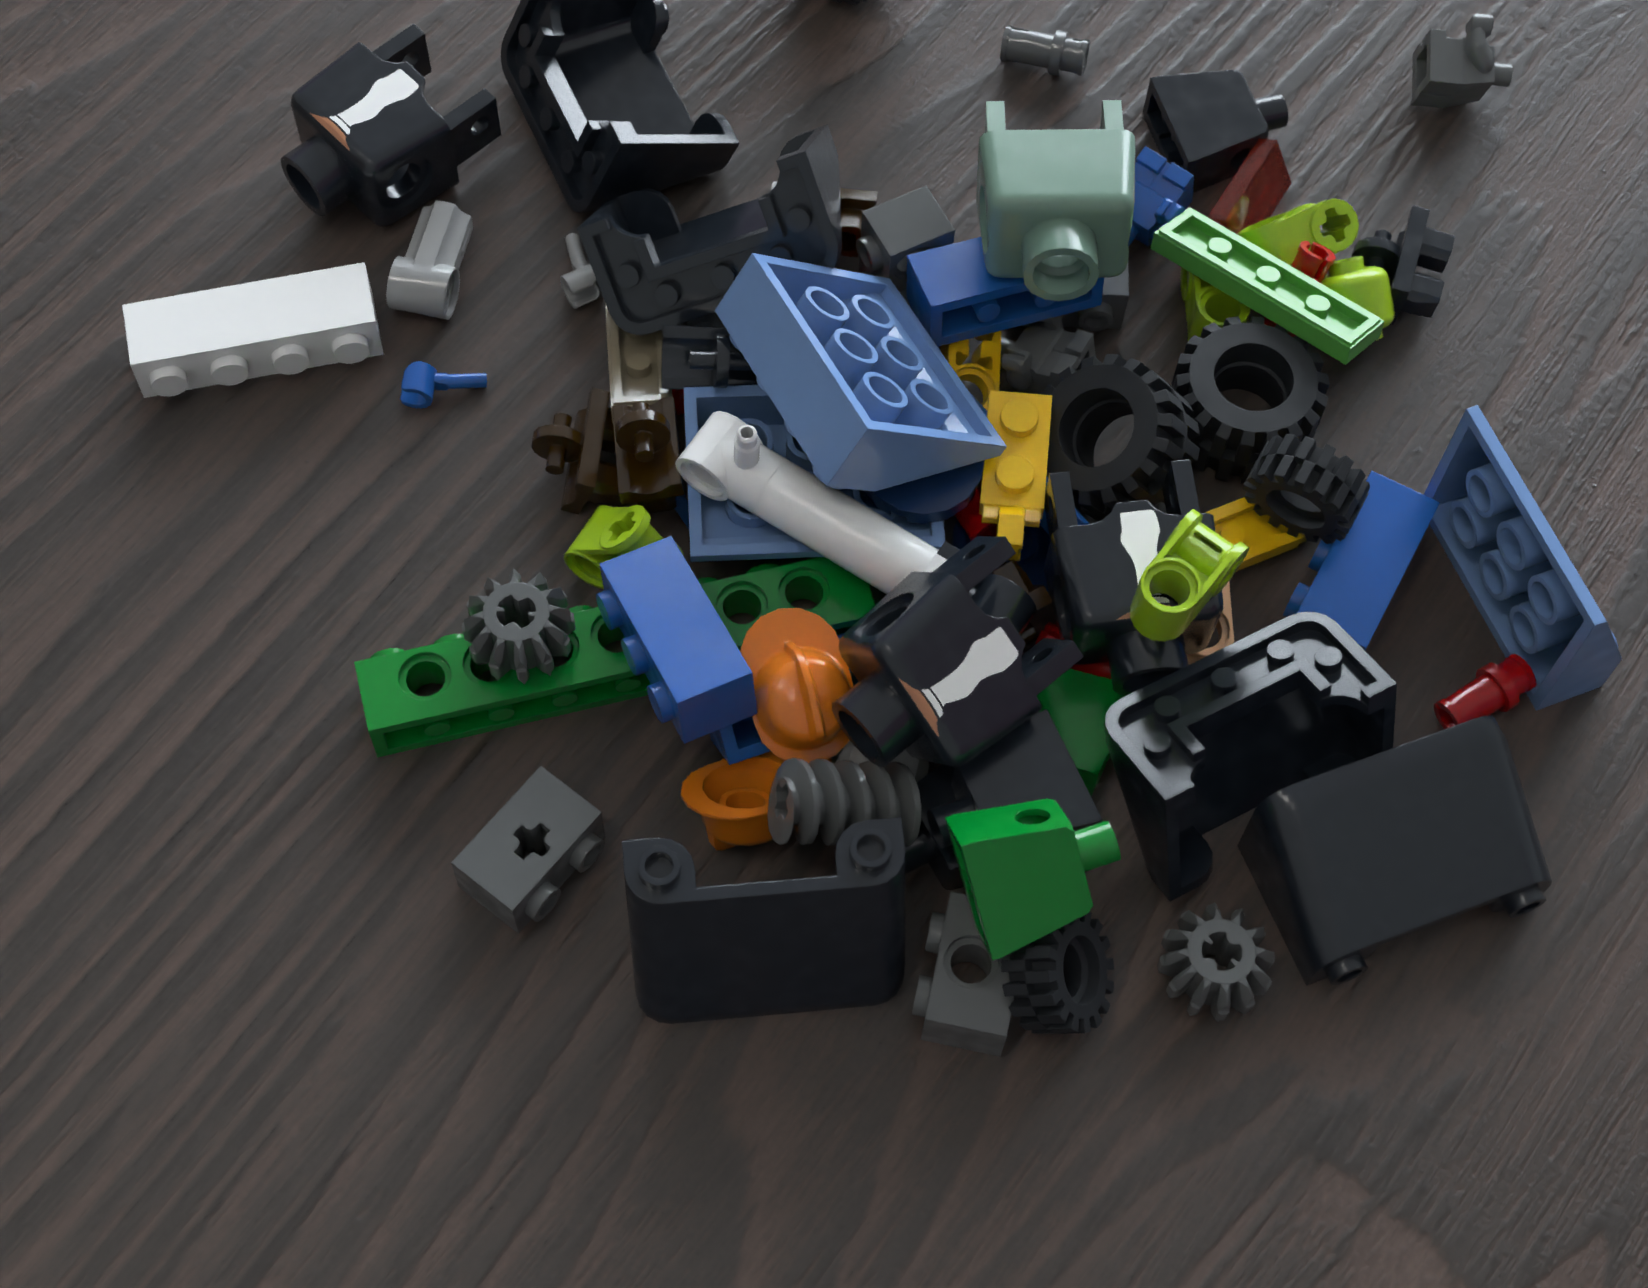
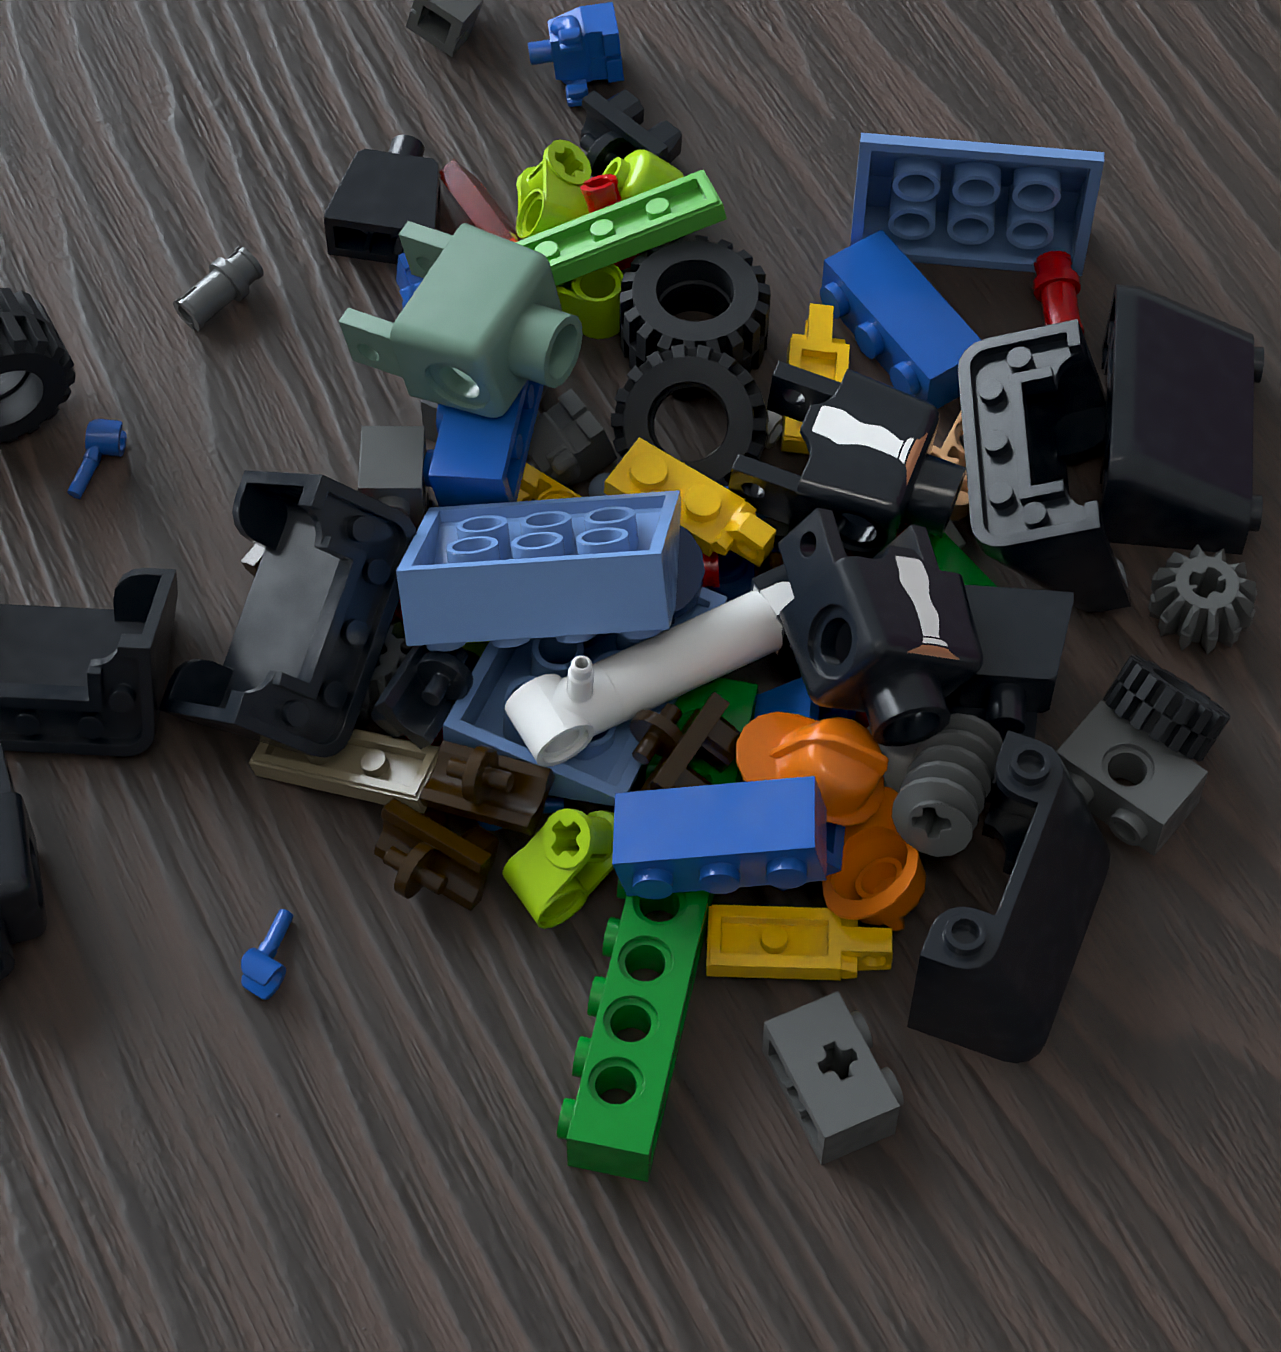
camera: 60 degrees left, 5 degrees down
(252, 330) = (108, 1095): white brick -> none
(429, 273) = (139, 910): light grey piece -> none
(518, 626) = (624, 944): dark grey gear -> none
(580, 283) = (230, 777): light grey hand -> none
(646, 762) = (792, 944): none -> yellow hinge
(726, 578) = (703, 734): none -> dark brown hips
(846, 42) = (101, 438): none -> blue hand
(1026, 870) = (1096, 669): green torso -> none
(1191, 570) = (905, 403): lime piece -> none
(1306, 488) = (830, 306): black tyre -> none
(1482, 188) = (582, 49): none -> blue piece

